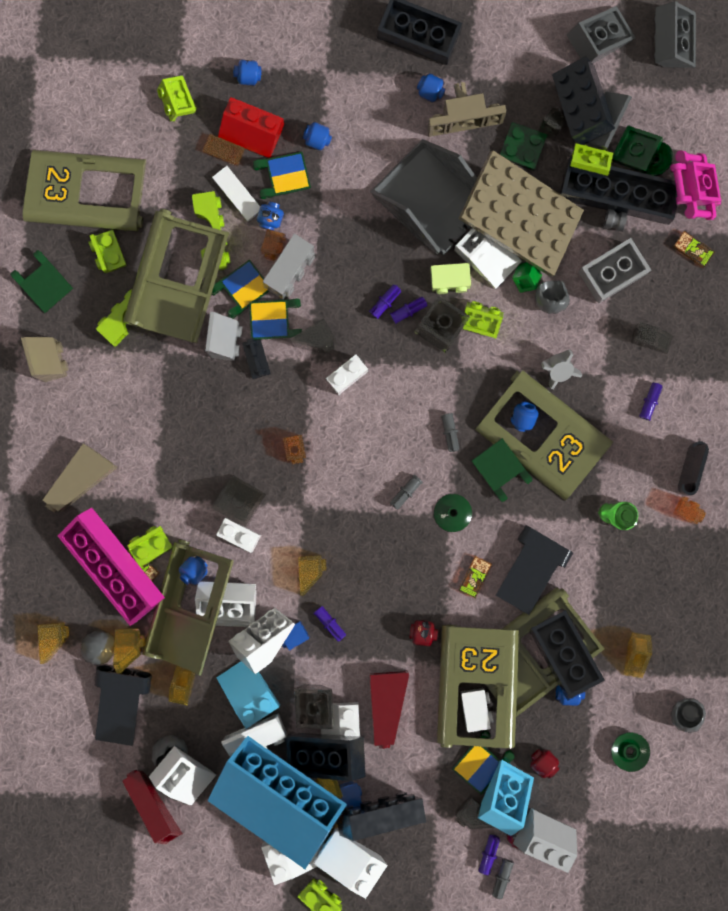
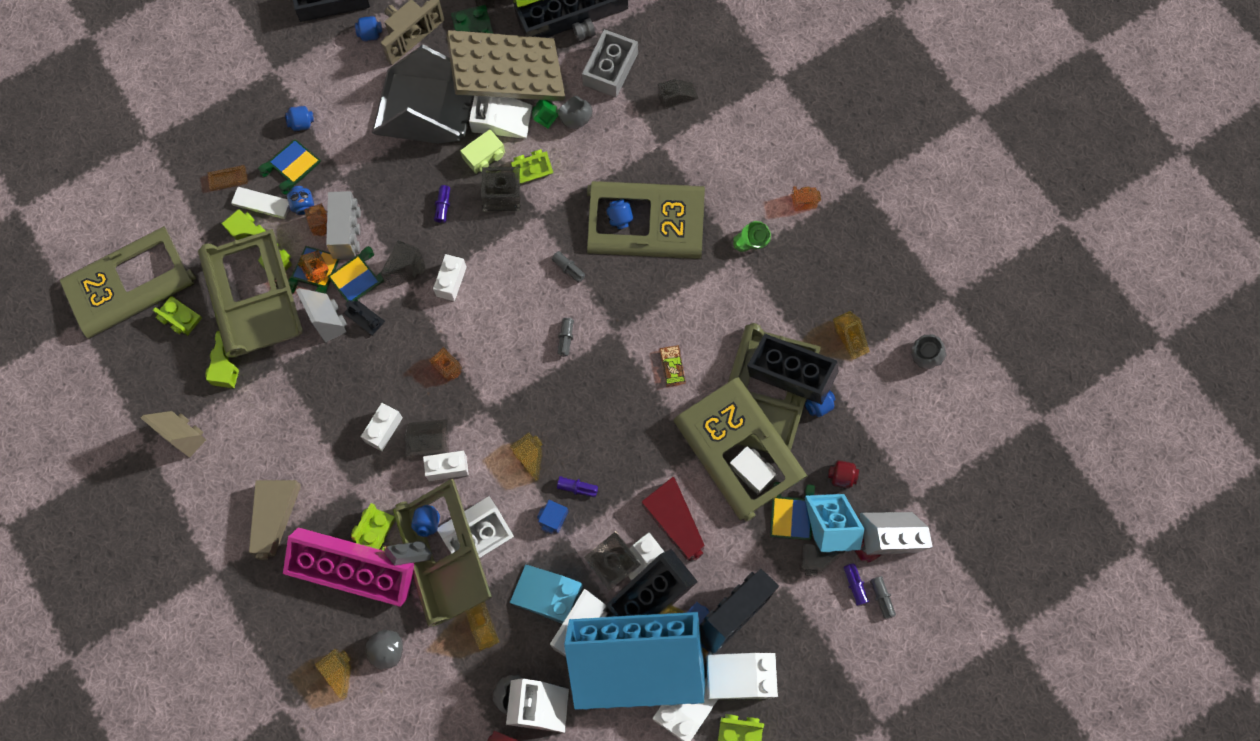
camera: 35 degrees left, 15 degrees down
(44, 285) = (138, 378): dark green flag -> none
(119, 703) = (437, 687): black piece -> none
(127, 647) = (410, 628): clear yellow slope -> none
(162, 590) = (408, 553): none -> dark grey plate
(175, 97) = (160, 163): lime bracket -> none
(209, 466) = (381, 427): none -> white brick
(246, 283) = (315, 262): none -> clear orange brick
(247, 72) = (208, 108): blue head -> none
(250, 127) = (239, 145): red slope -> none
(261, 640) = (526, 538): white slope -> none
(408, 309) = (466, 197): dark purple axle -> none
(423, 633) = (662, 438): dark red head -> none
(443, 517) = (616, 337): dark green dish -> none
(499, 466) = (628, 265): dark green flag -> none
(532, 569) = (714, 324): black piece -> none
(560, 368) = (621, 159): light grey piece -> none
(639, 756) = (910, 406): dark green dish -> none
(651, 401) = (712, 139): dark purple axle -> none
(693, 249) = (660, 13): tile -> none
(693, 467) = (782, 160): black piece -> none

